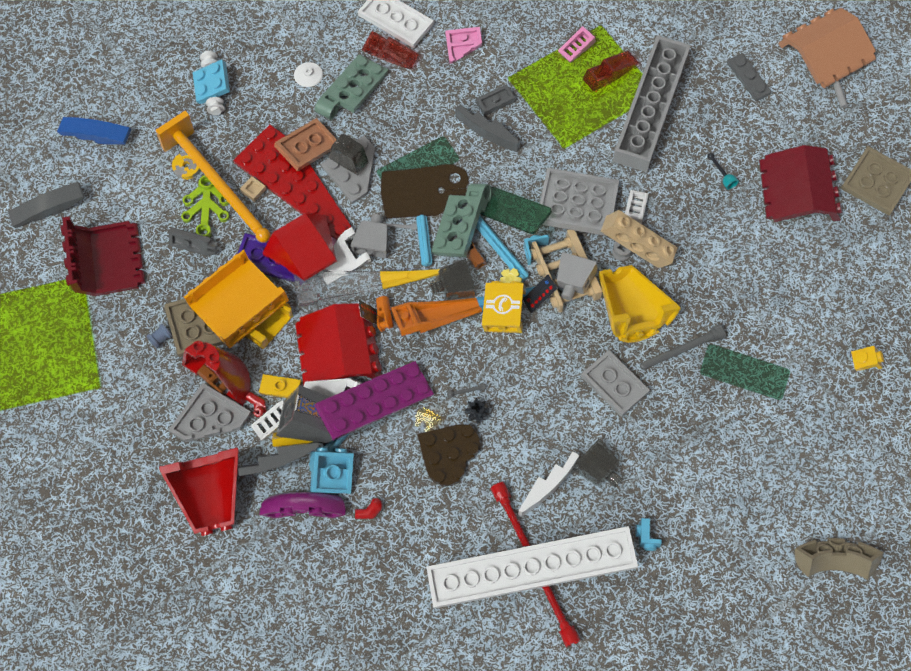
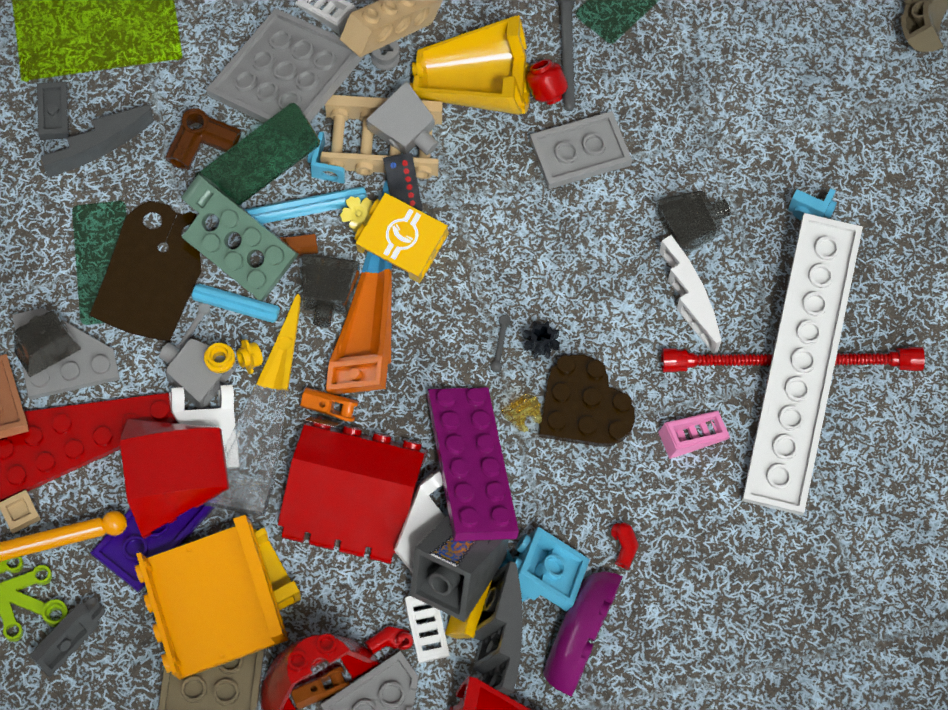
camera: 70 degrees left, 0 degrees up
(278, 386) = (376, 596): yellow plate -> none
(379, 237) = (219, 349): none -> yellow plate
(393, 260) = (249, 356): none -> yellow plate
(448, 522) = (676, 441): none -> bright pink slope
(509, 173) = (188, 141): none -> reddish brown piece
(648, 344) = (547, 81): none -> red head

